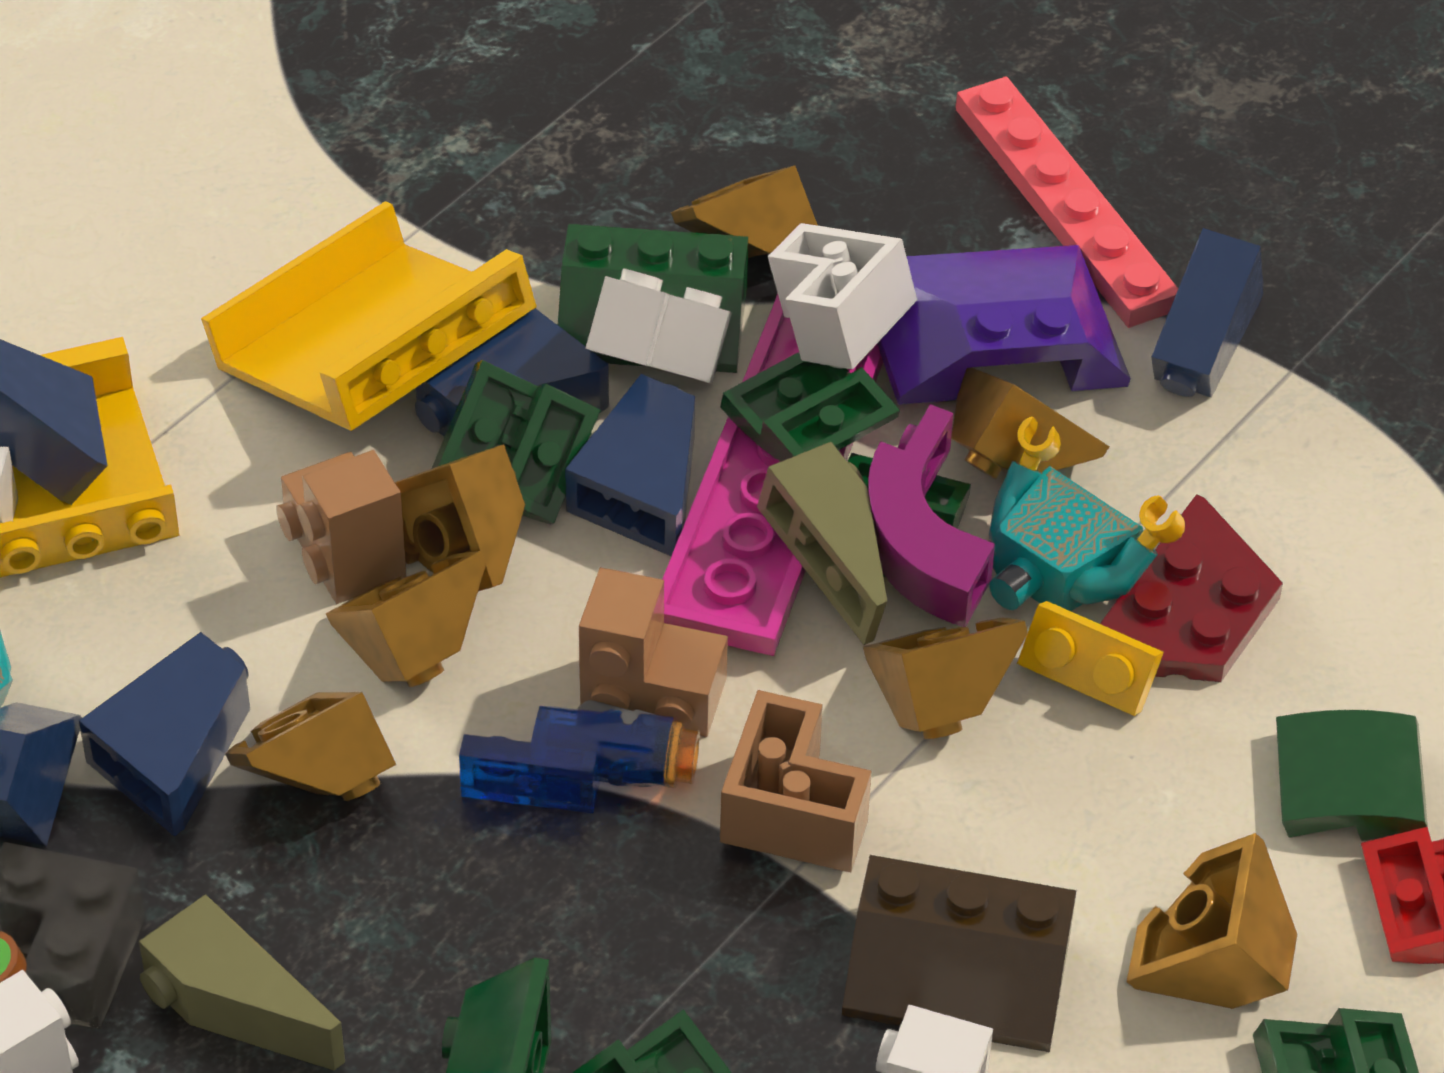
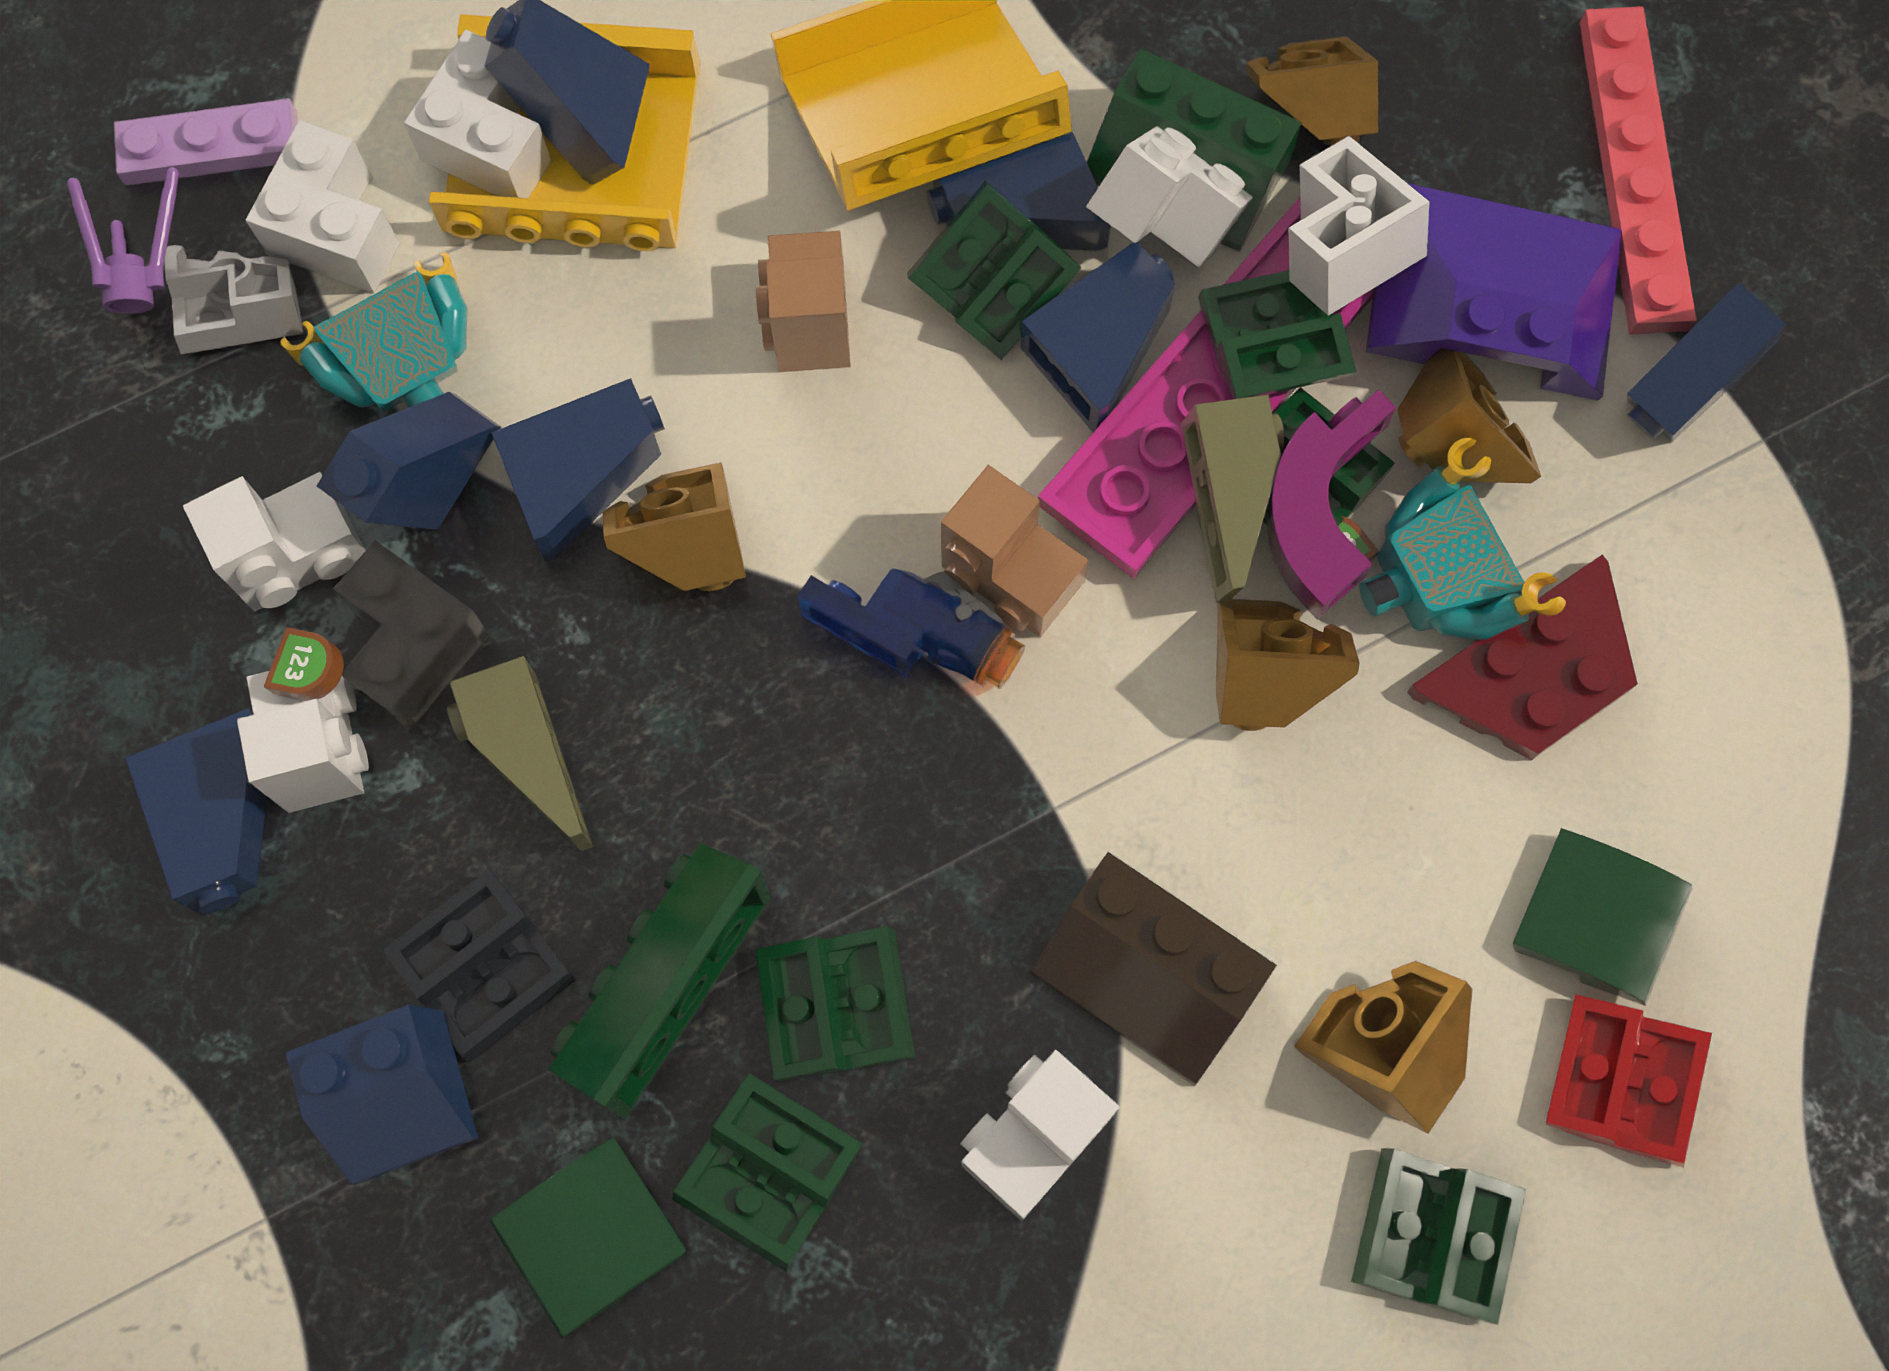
camera: 25 degrees right, 25 degrees up
(412, 621) = (828, 423): pearl gold slope -> none
(462, 510) = (911, 333): pearl gold slope -> none
(788, 798) = (1062, 744): medium nougat brick -> none
(1090, 658) = (1416, 700): yellow plate -> none

